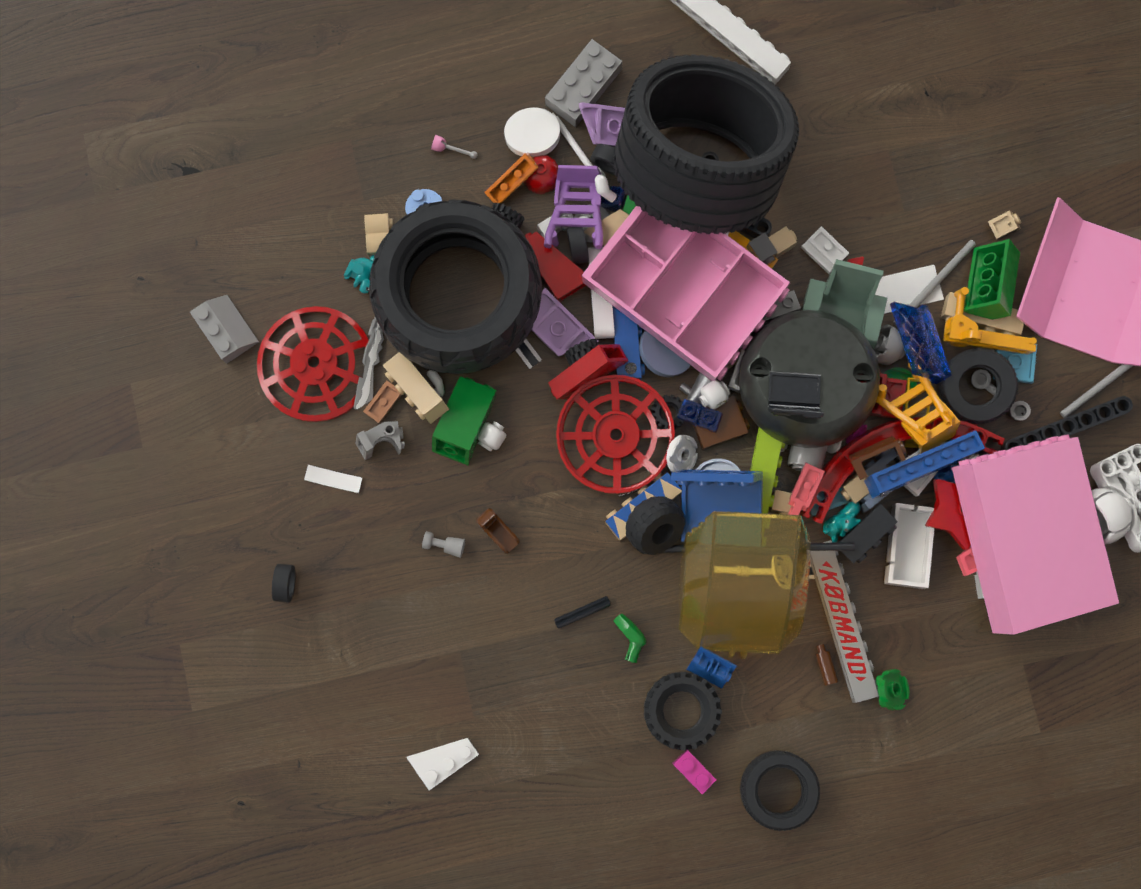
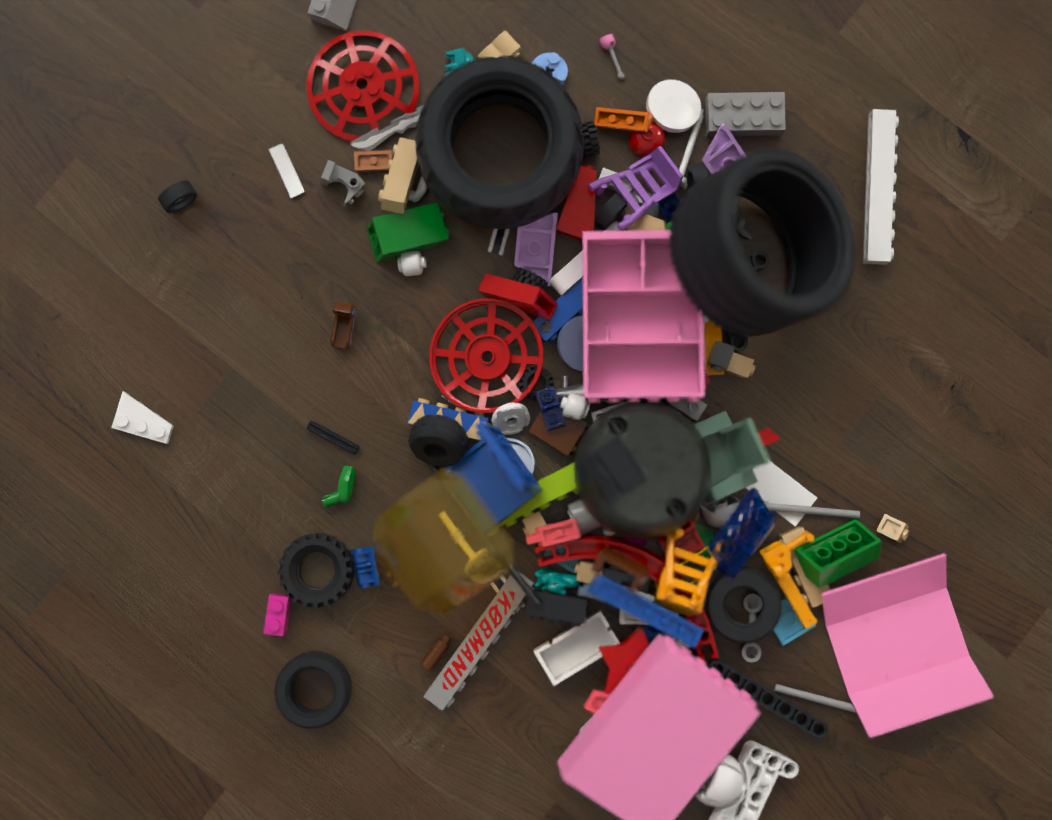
camera: 50 degrees right, 5 degrees up
(451, 545) = (304, 299): light grey piece -> none
(603, 188) = (669, 195): white arm -> none
(824, 249) = (760, 404): white plate -> none
(887, 697) = (447, 721): green plate -> none

